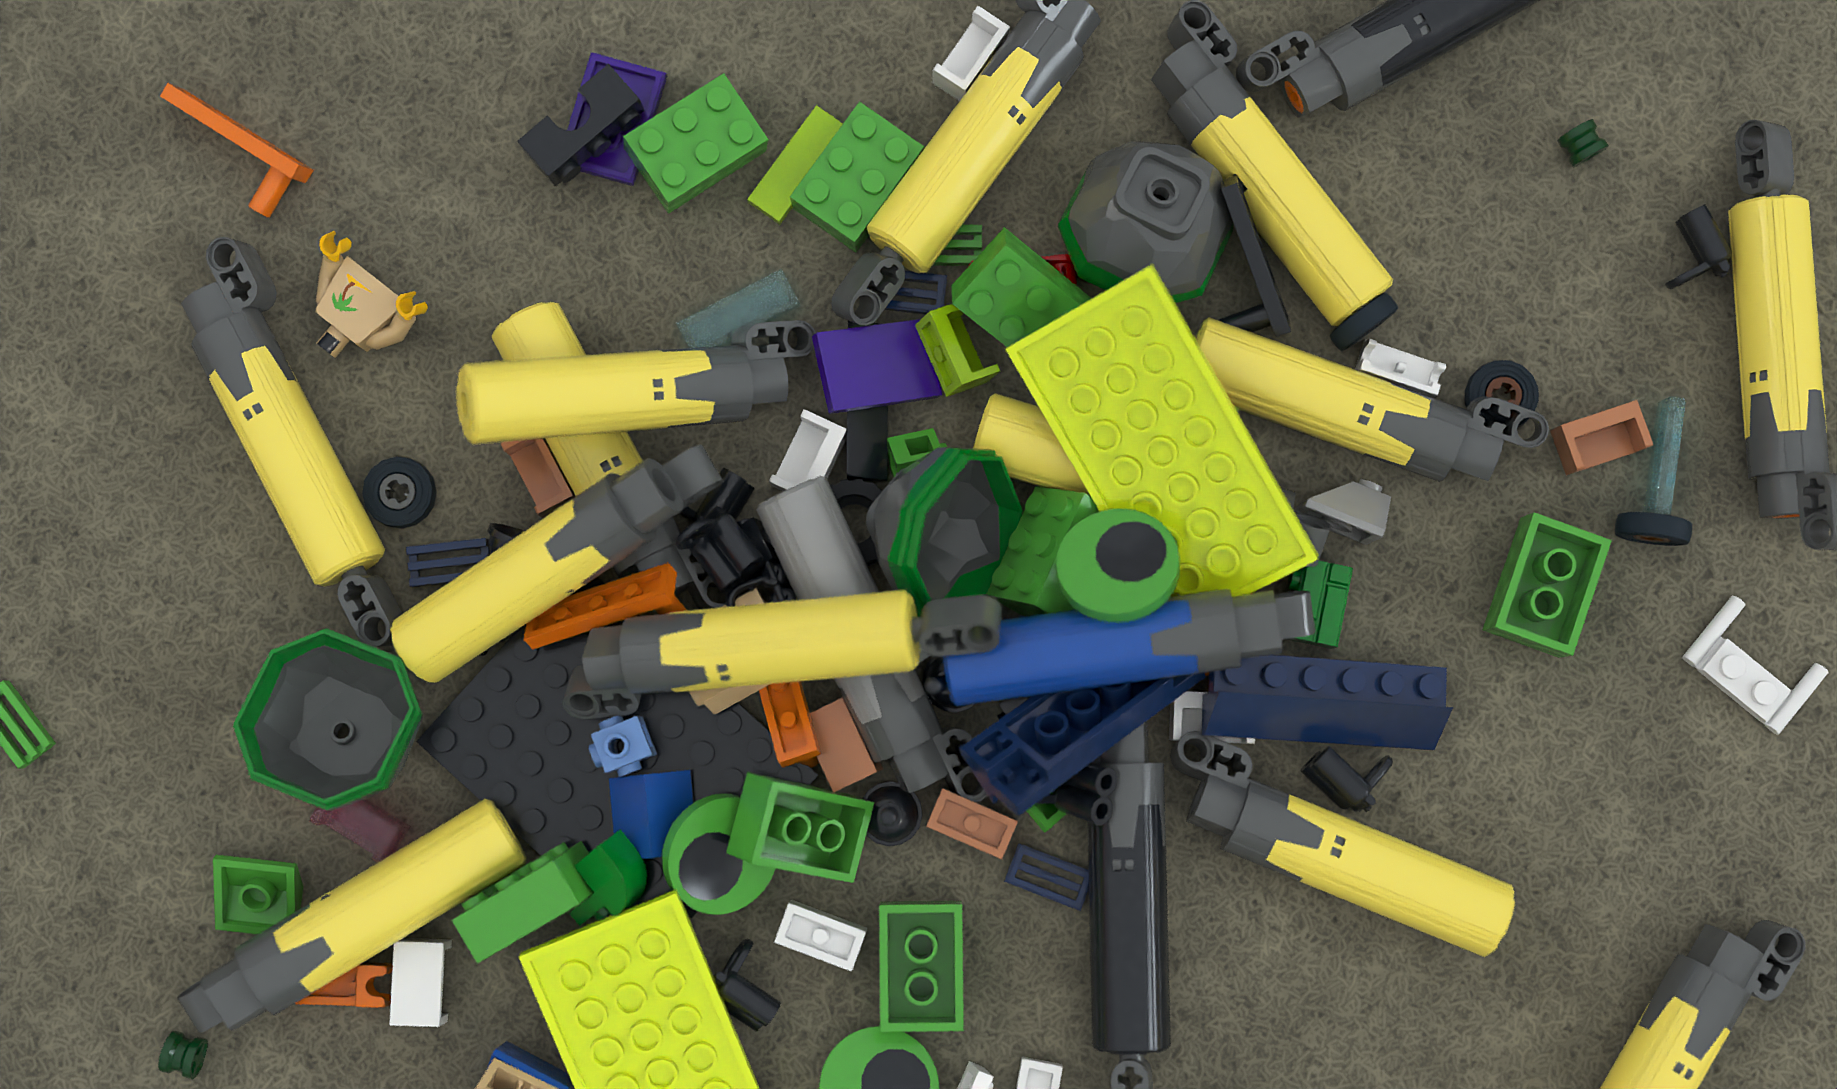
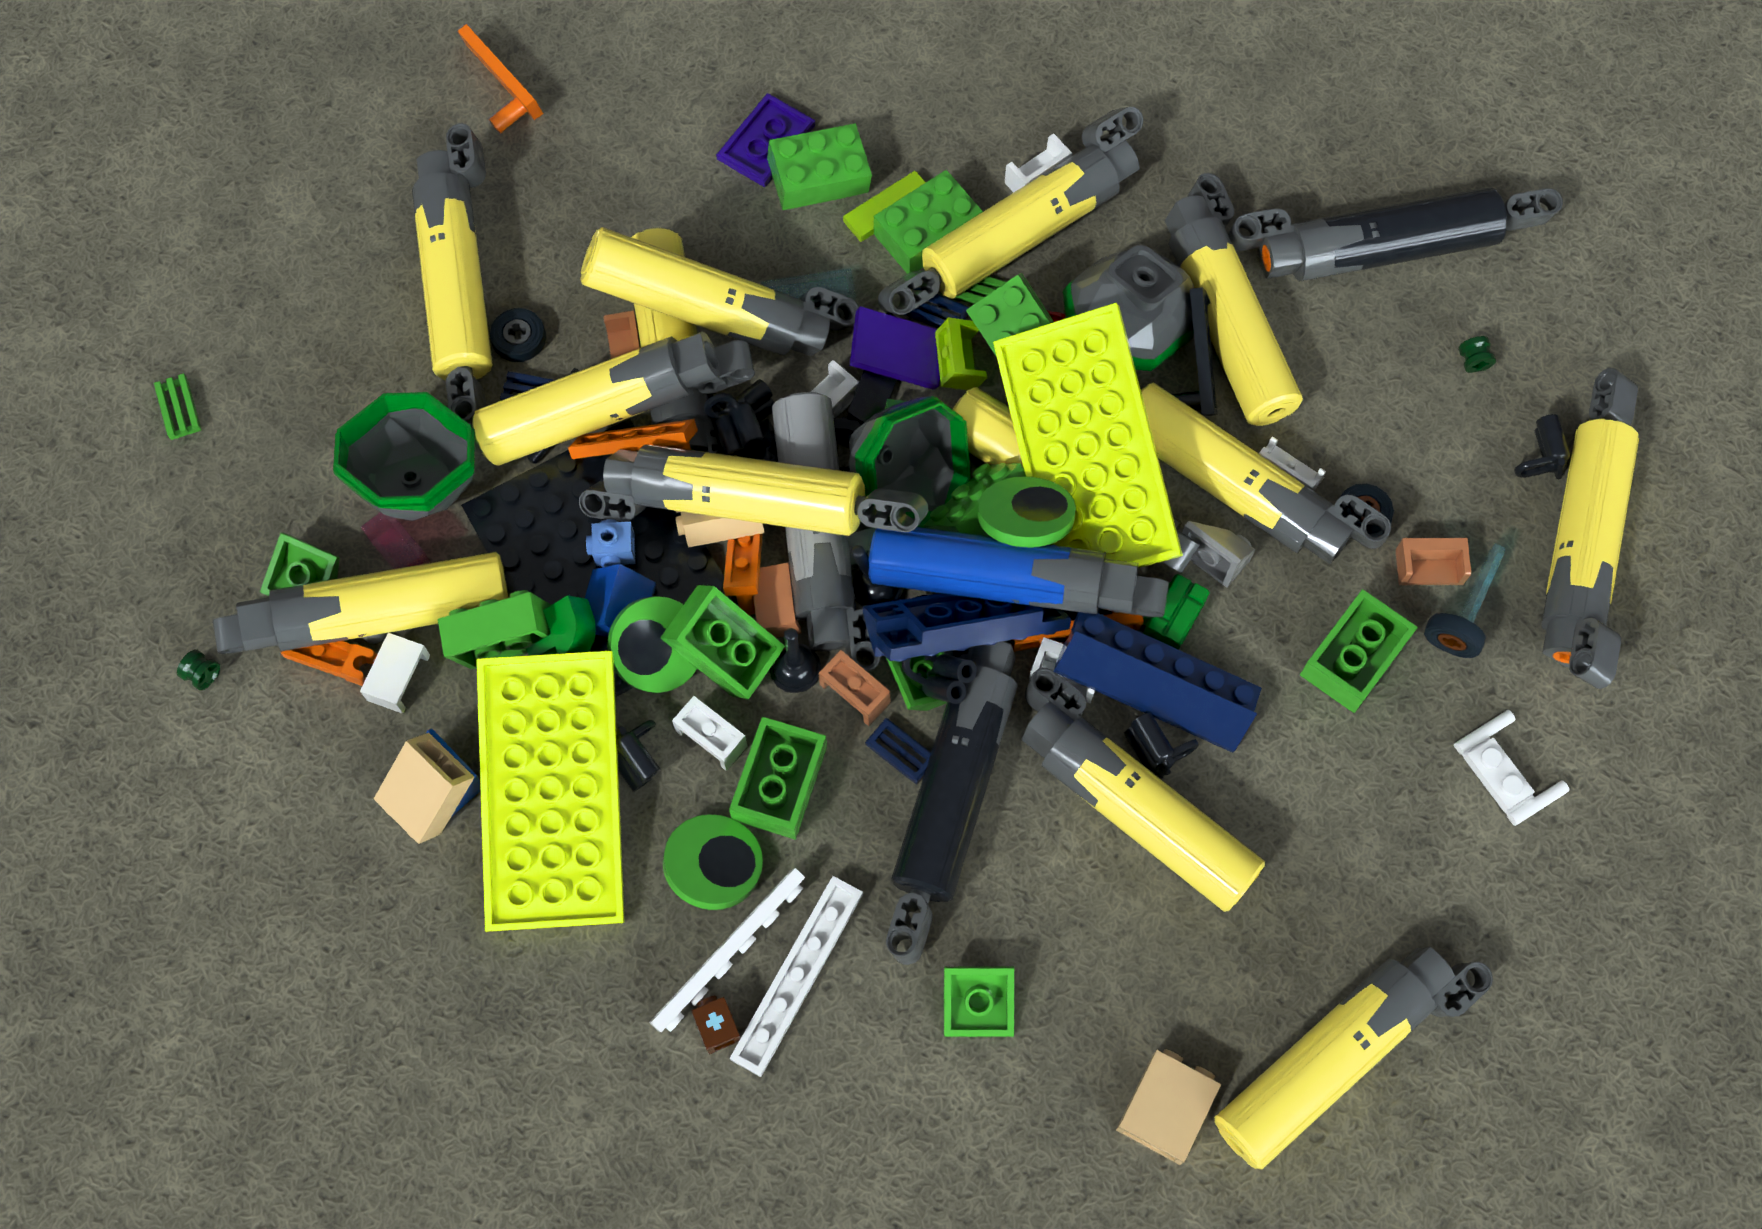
camera: 15 degrees right, 15 degrees down
(359, 303) = (539, 200): tan torso -> none
(561, 151) = (724, 144): black arch -> none
(1363, 321) = (1272, 421): black bush -> none

